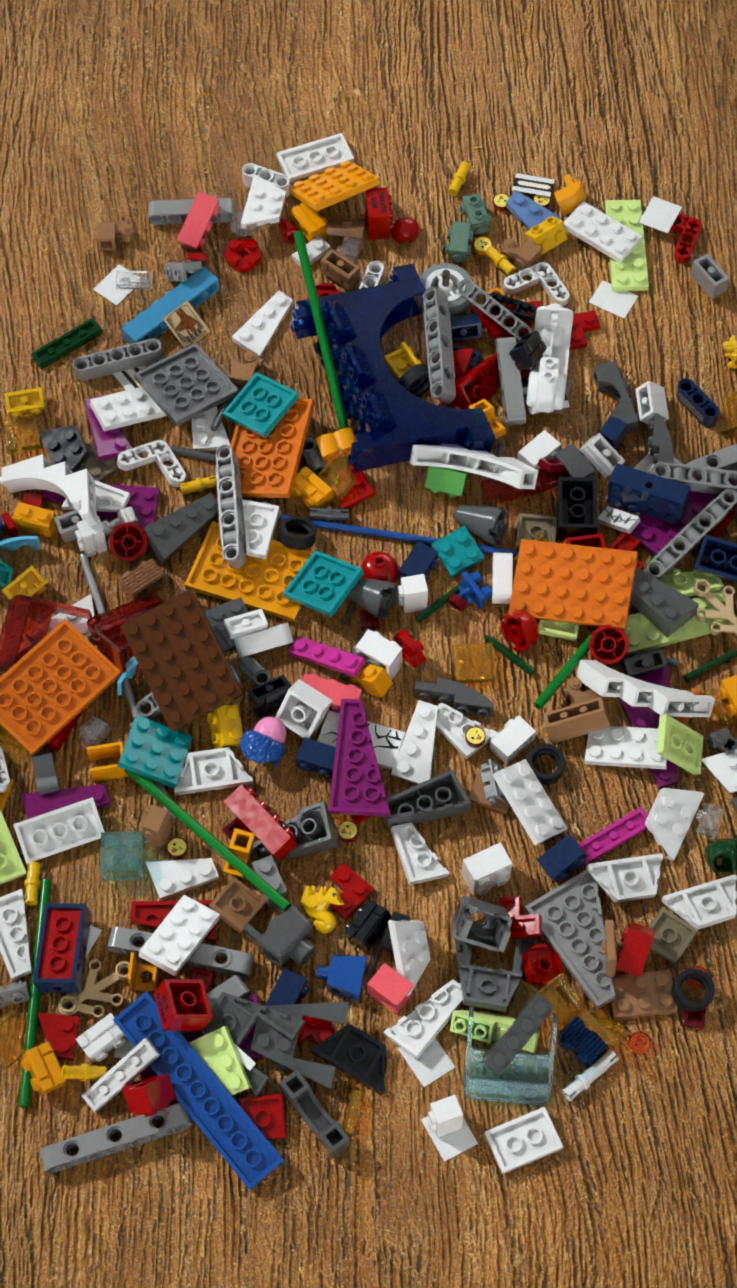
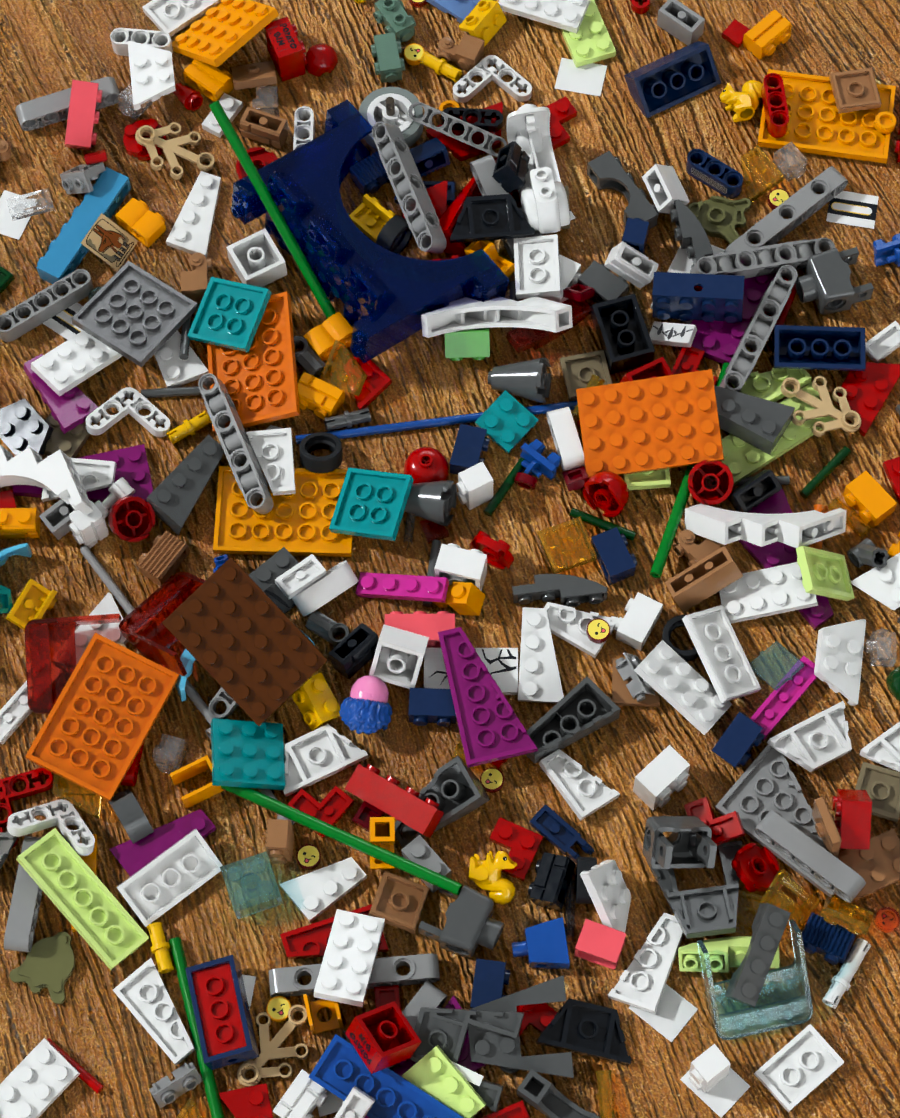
camera: 15 degrees left, 5 degrees up
(109, 960) = (278, 1008): none -> light yellow tile
(206, 815) = (328, 810): none -> red plate
(216, 316) = (141, 222): none -> light orange brick
(262, 265) = (172, 148): none -> tan plant
(299, 369) = (257, 259): none -> white brick
(388, 889) = (559, 833): none -> dark blue hinge
(412, 328) = (369, 174): none -> dark blue brick
(497, 387) = (490, 219): none -> black wing
(498, 611) = (575, 478): none -> dark red plate
(509, 681) = (614, 556): none -> dark blue brick
(523, 435) = (537, 266): none -> white plate
(571, 785) = (721, 653): none -> white tile
(589, 969) = (810, 856): none -> light grey beam
(615, 808) = (776, 665): none -> clear light blue piece
(688, 319) = (673, 78): none -> dark blue slope
(691, 438) = (721, 216): none -> olive tile

